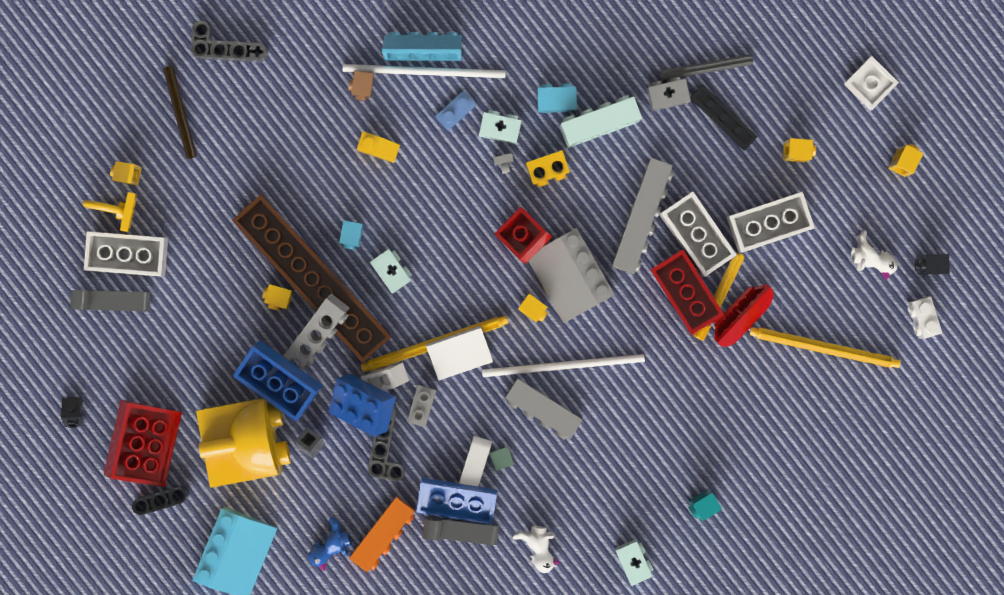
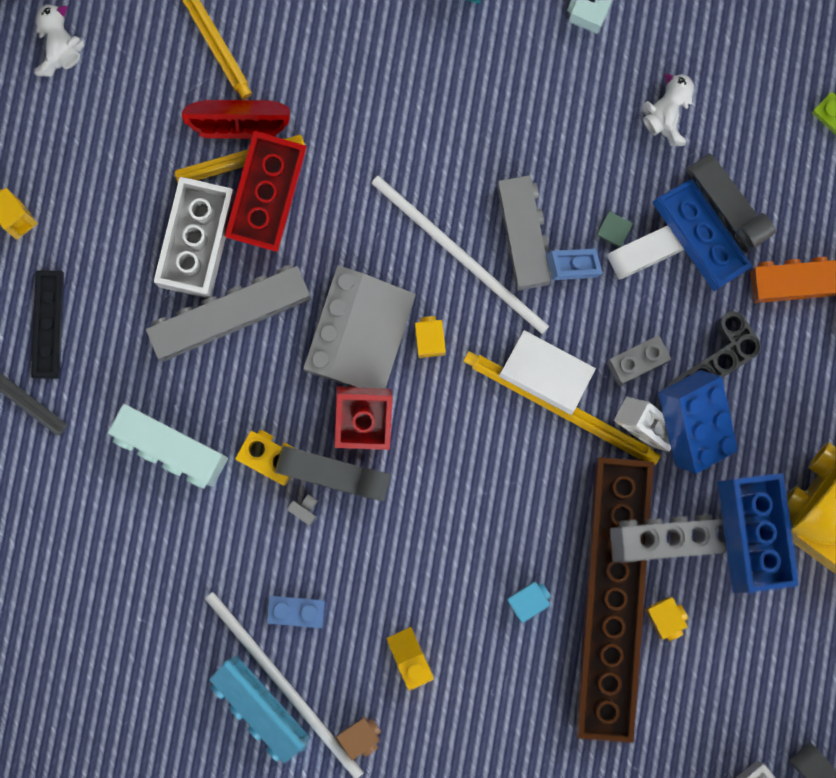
camera: 130 degrees left, 5 degrees down
(309, 442) = (787, 441): dark grey brick -> none
(381, 266) = (538, 510): light aqua brick -> none
(490, 131) = (284, 555): light aqua brick -> none
(502, 419) = (574, 264): none -> medium blue plate
(508, 193) = (333, 474): none -> dark grey beam
(556, 98) = (185, 515): medium azure brick -> none
(679, 97) = (89, 408): light grey brick -> none
(770, 222) = (114, 174): white brick -> none

